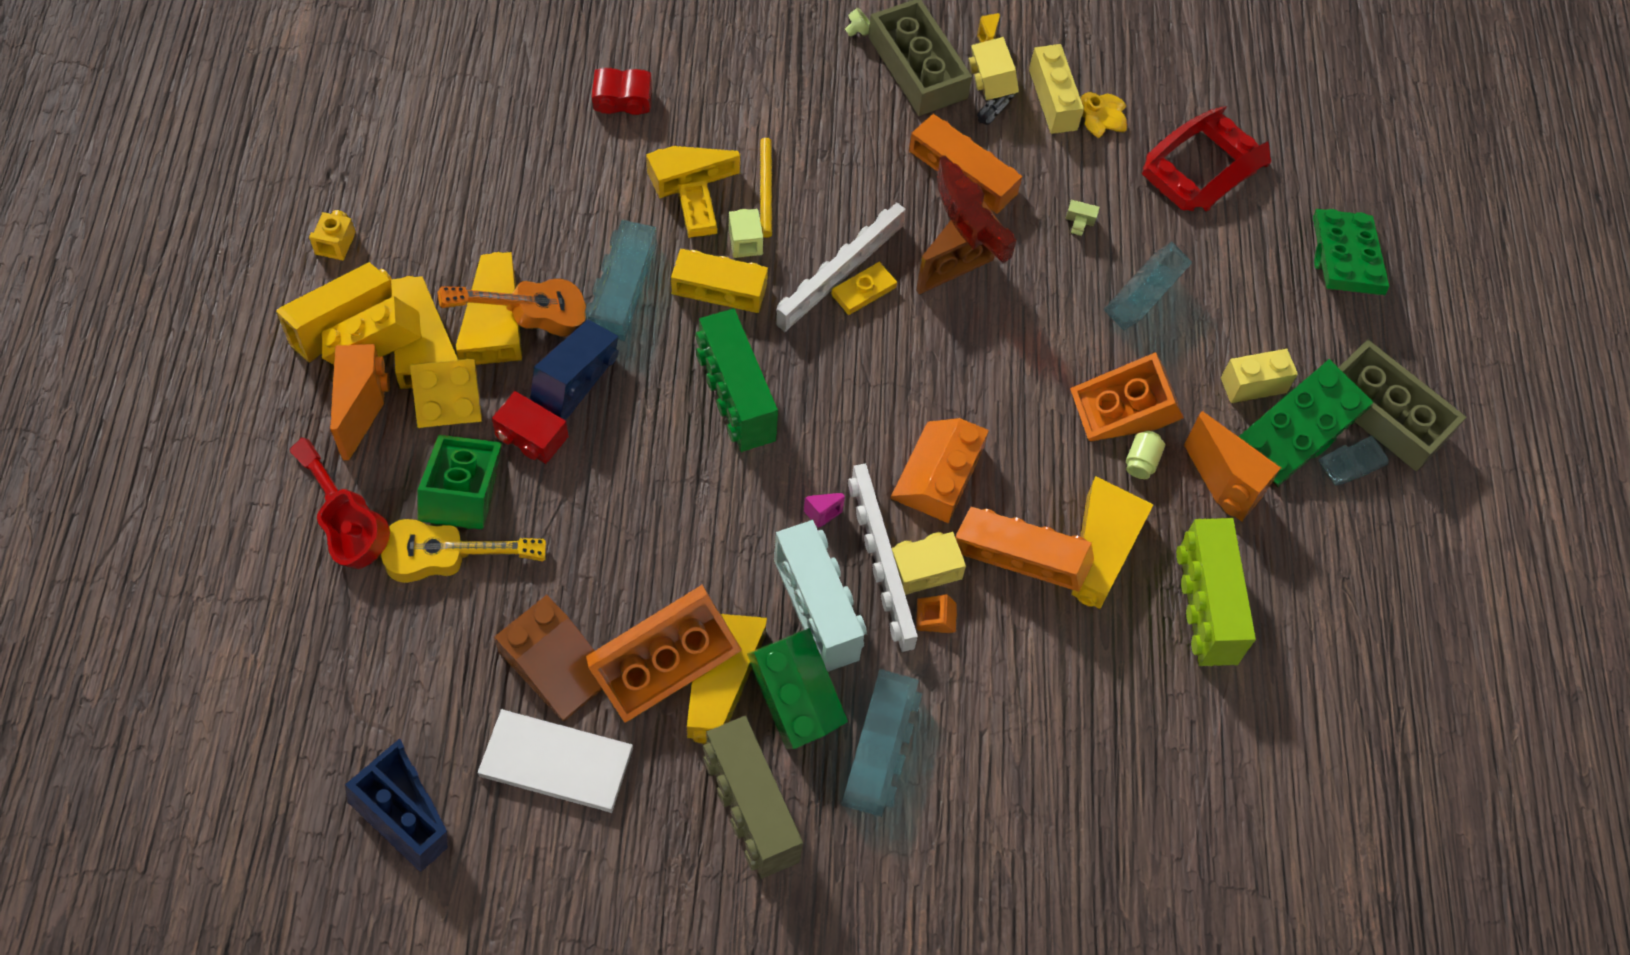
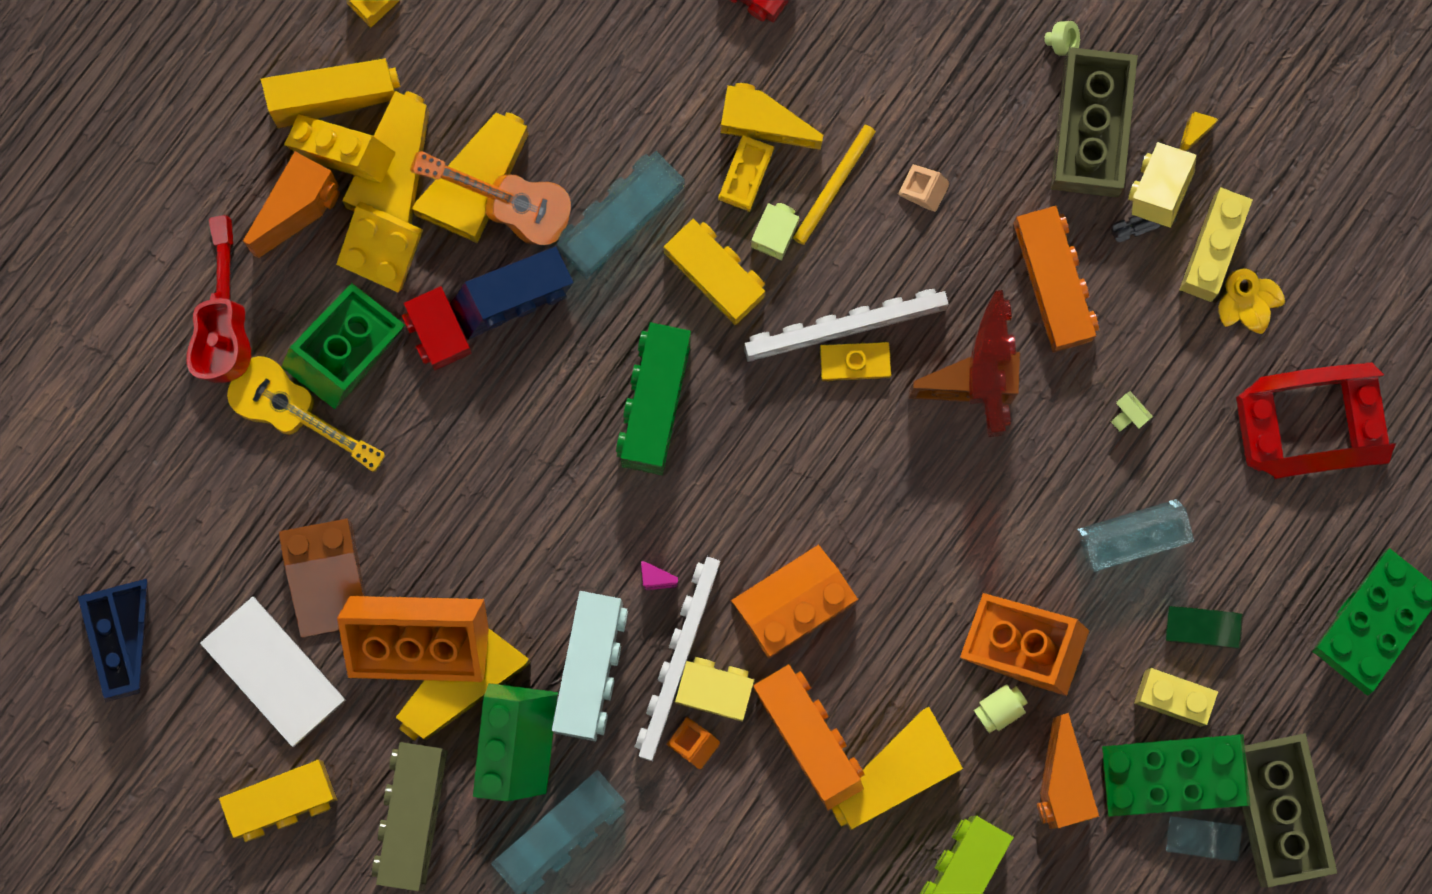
camera: 35 degrees right, 20 degrees up
(627, 859) = (278, 801): none -> yellow brick
(830, 157) = (924, 187): none -> light nougat slope
(1238, 322) = (1204, 627): none -> dark green slope

